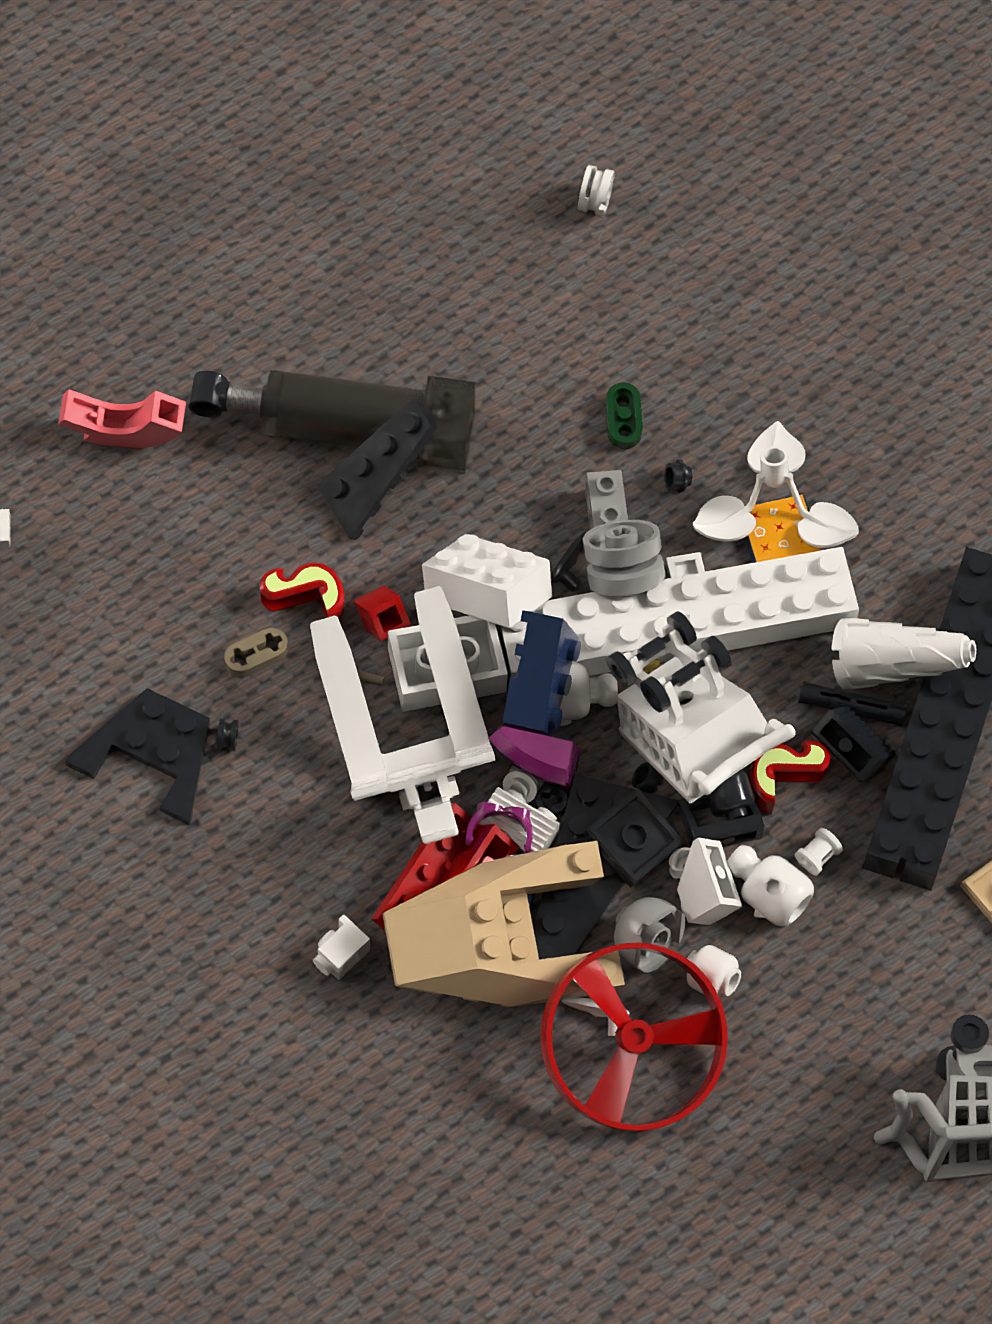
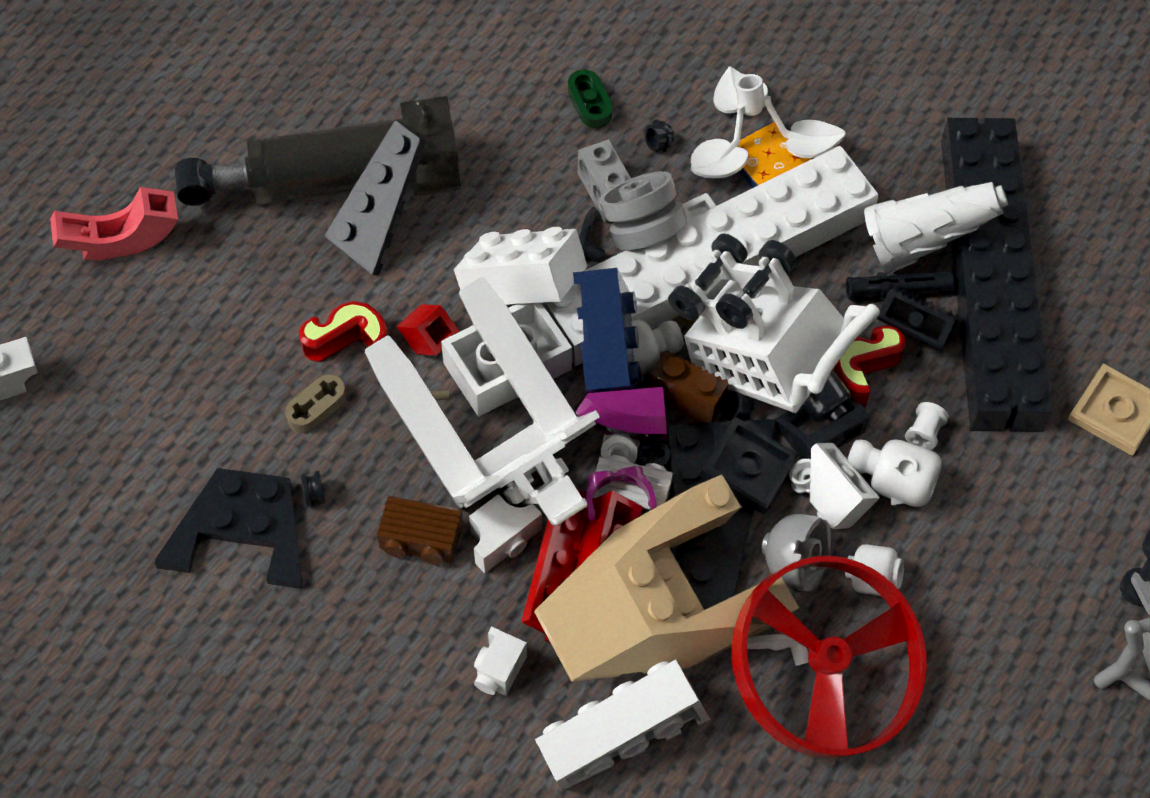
camera: 15 degrees left, 5 degrees down
(311, 804) = (419, 530): none -> reddish brown brick
(384, 829) = (502, 531): none -> white brick
(430, 1037) = (621, 724): none -> white wedge
(605, 745) = (689, 388): none -> reddish brown brick

